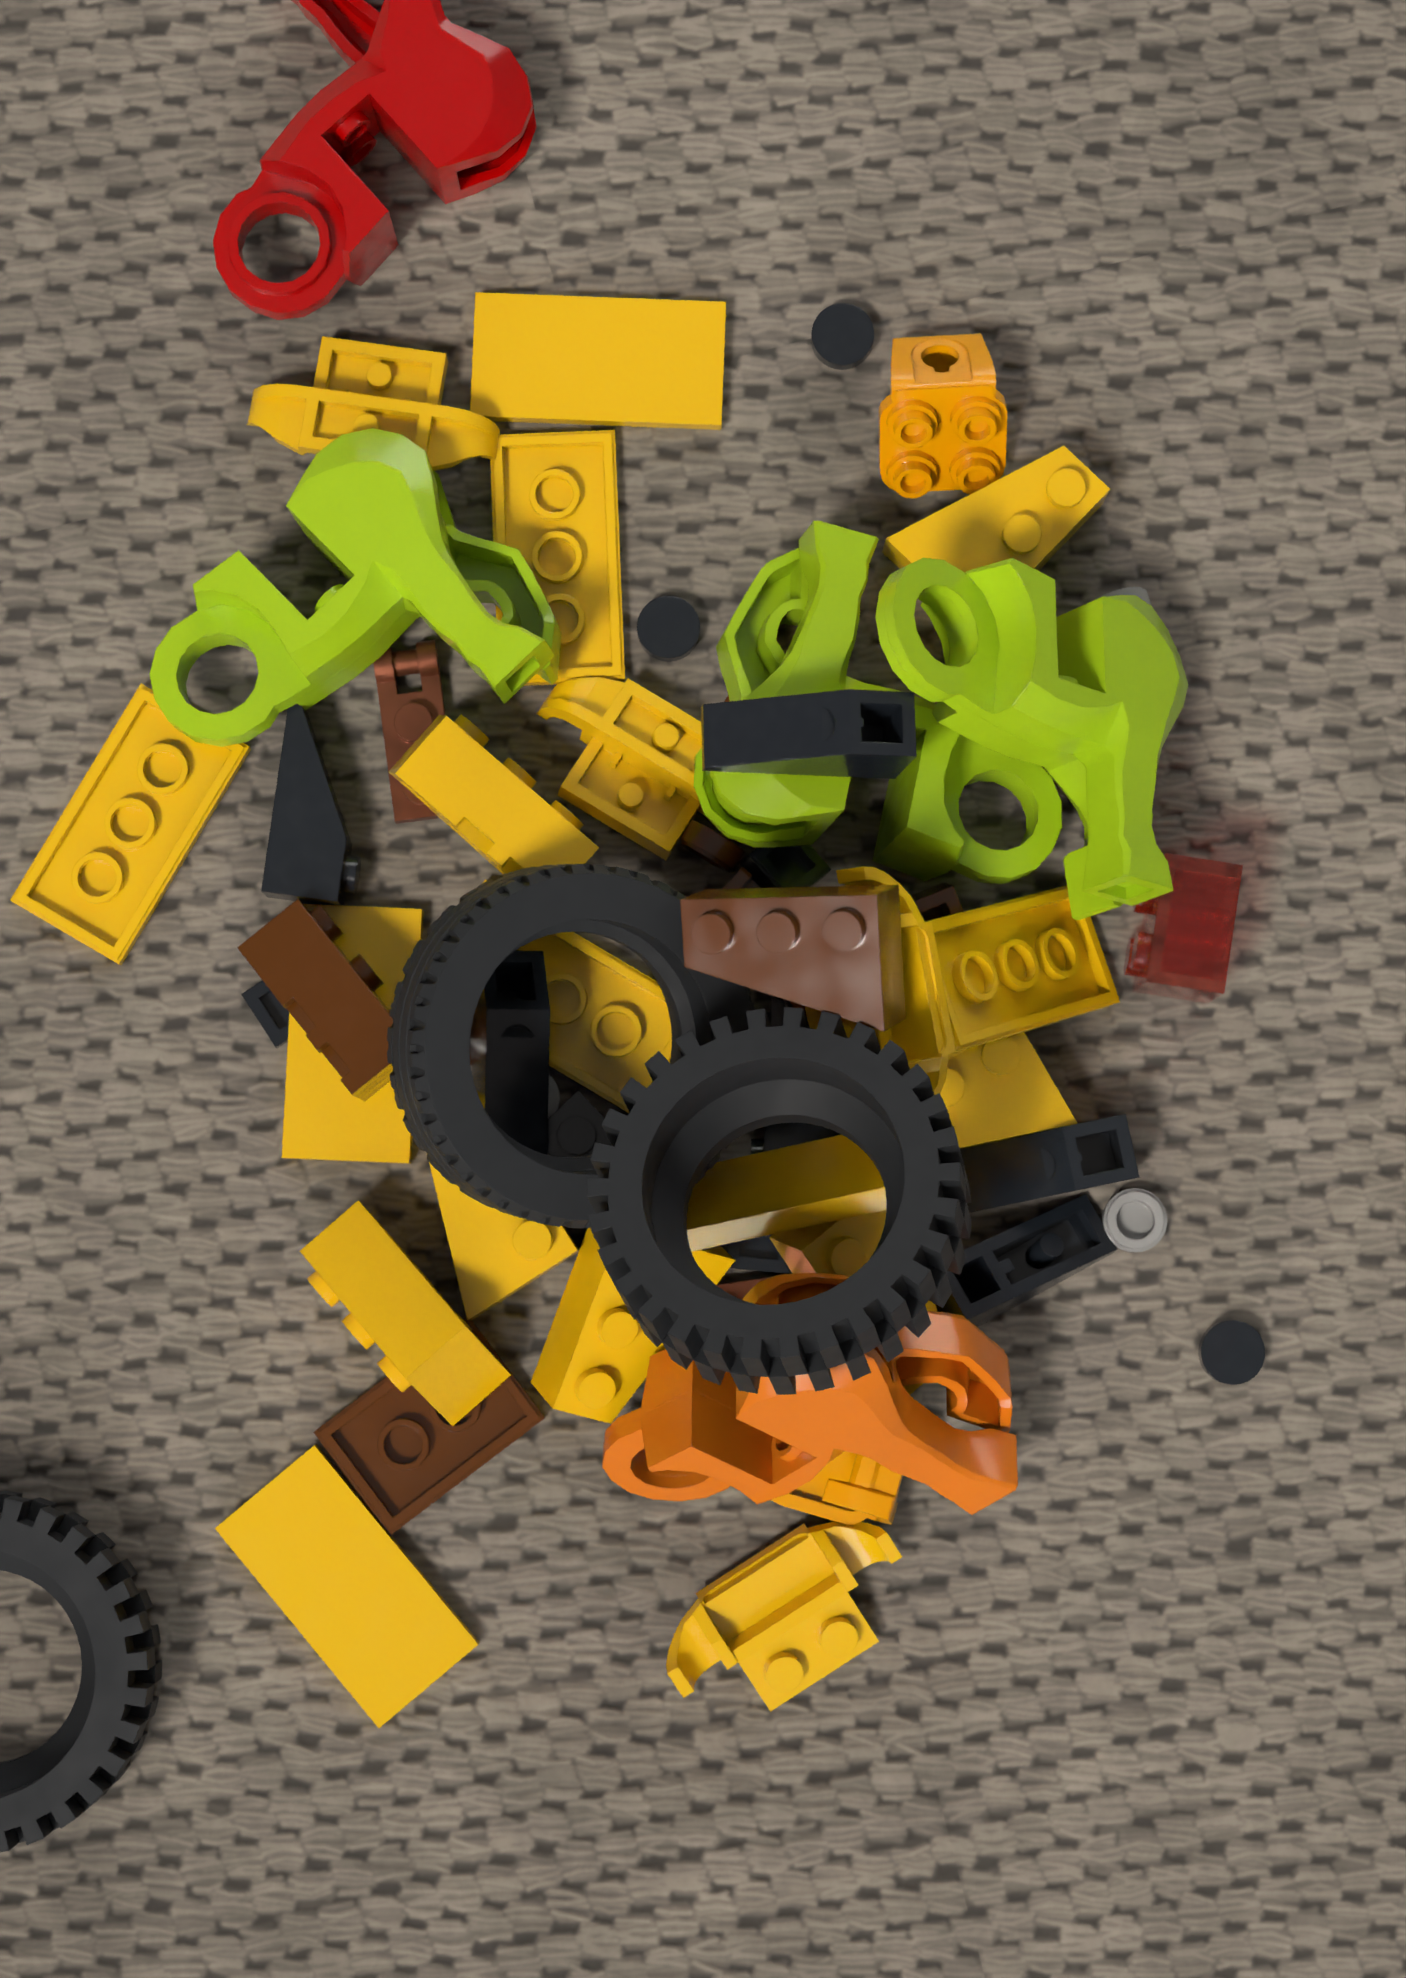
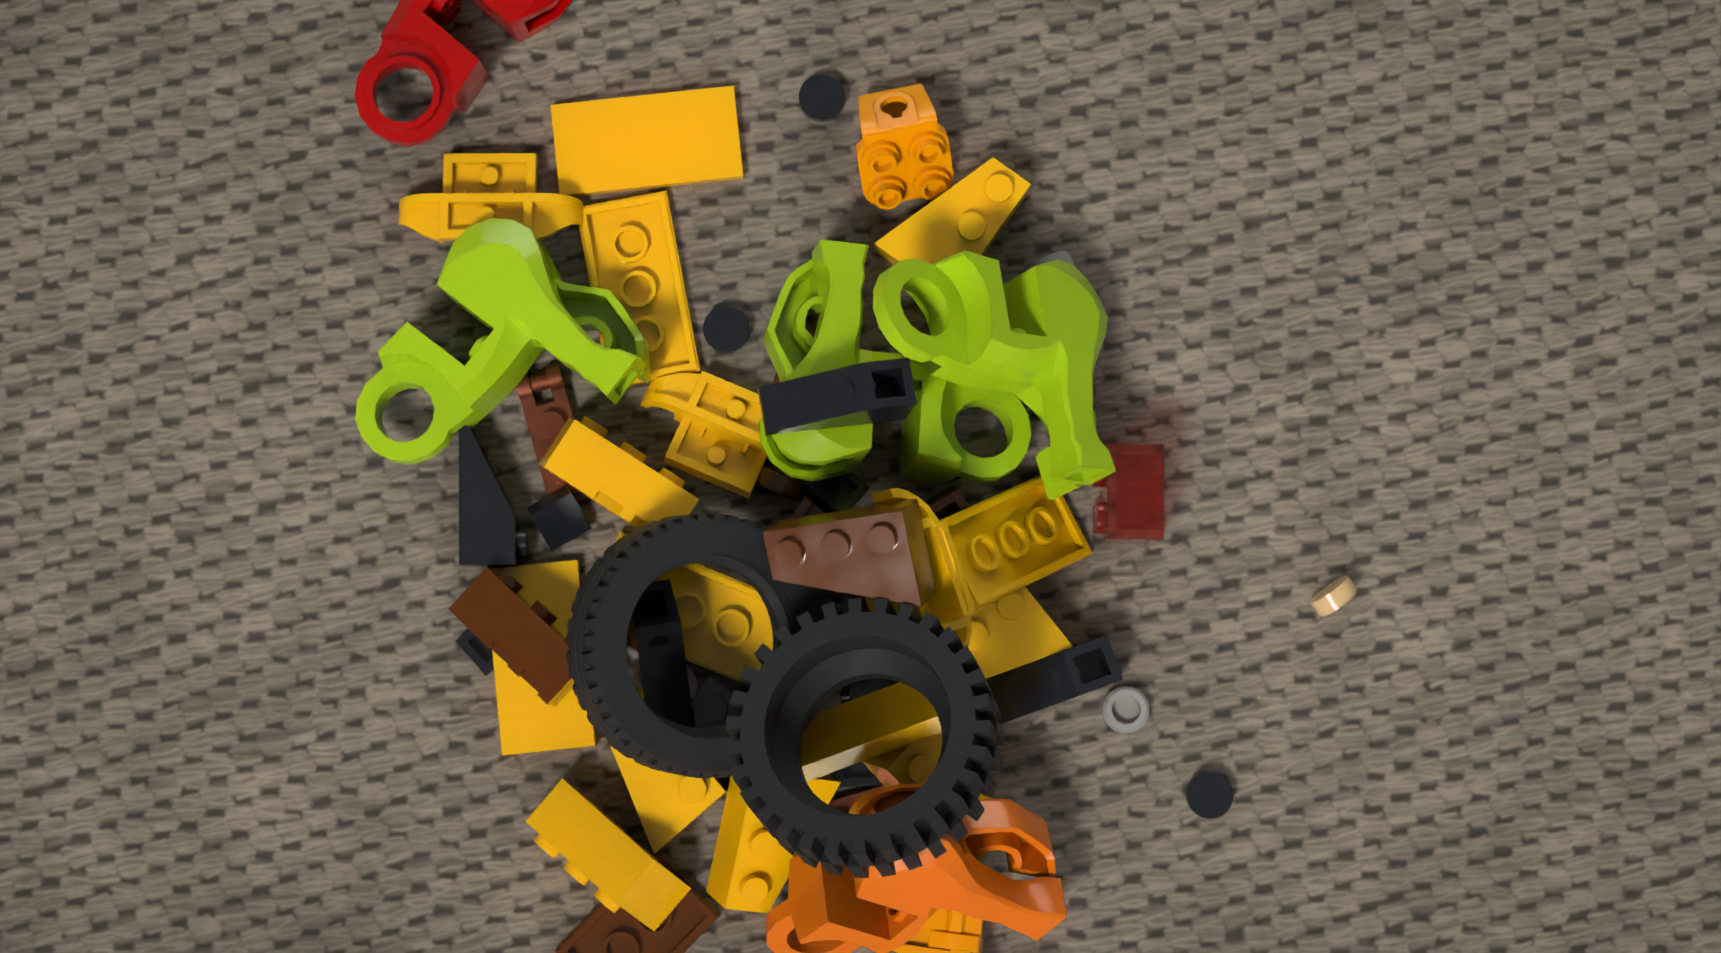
camera: 10 degrees left, 0 degrees up
(127, 829) = (354, 533): yellow tile -> none
(405, 849) = (559, 518): none -> black tile
(1027, 1261) = (1050, 751): black slope -> none

